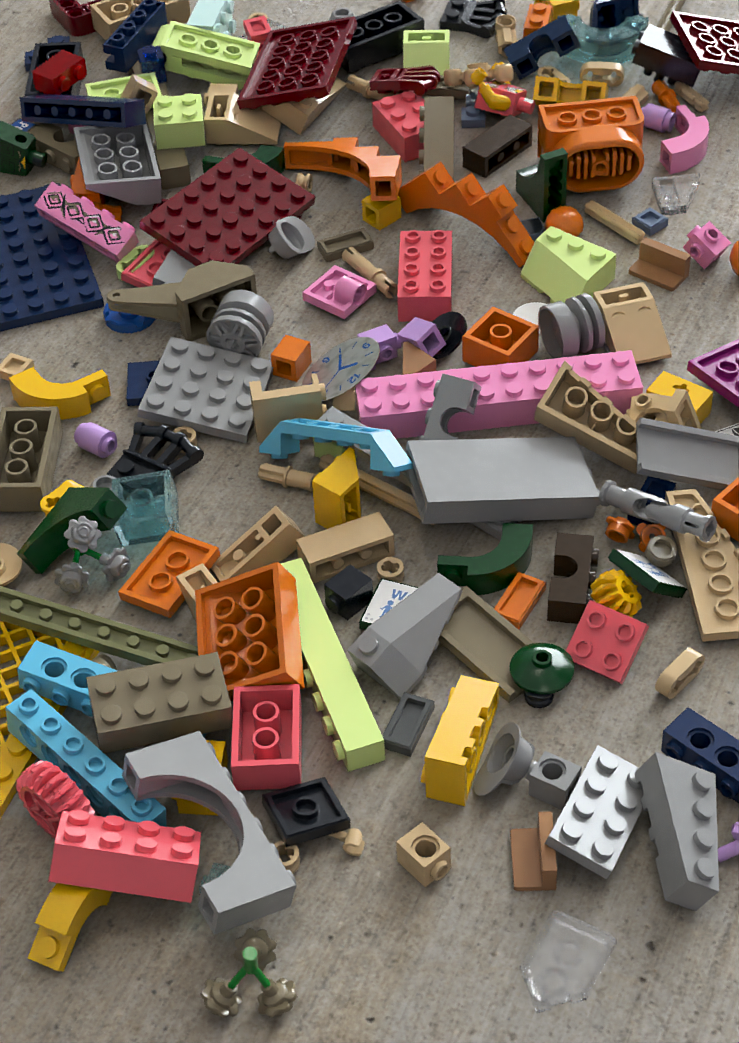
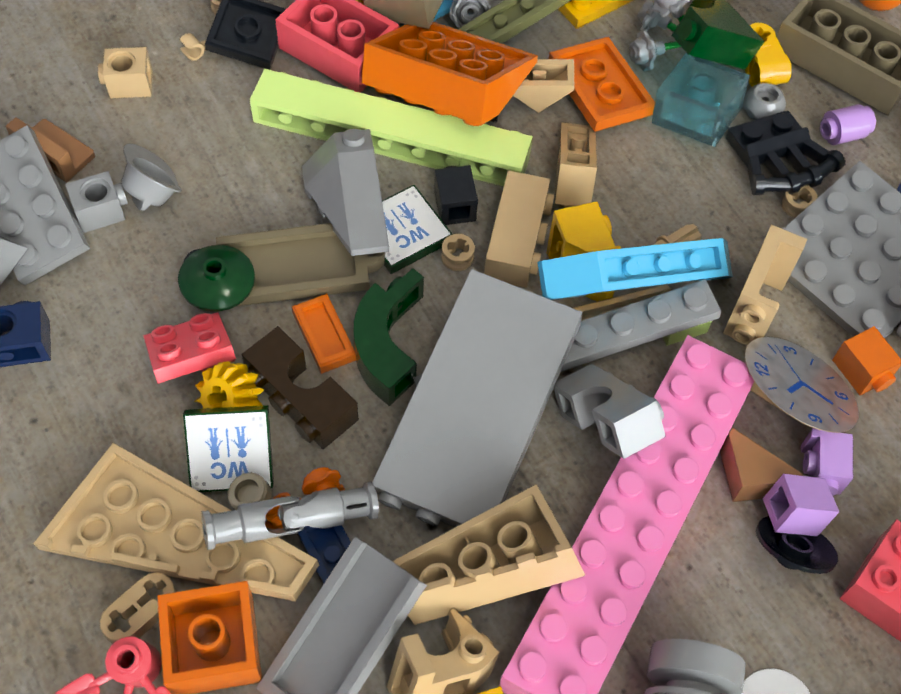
camera: 120 degrees right, 15 degrees up
(407, 723) = (270, 153): dark grey tile -> none
(460, 740) = (201, 158): yellow wedge -> none
(500, 339) = (728, 589): orange brick -> none
(680, 673) = (96, 389): tan beam -> none

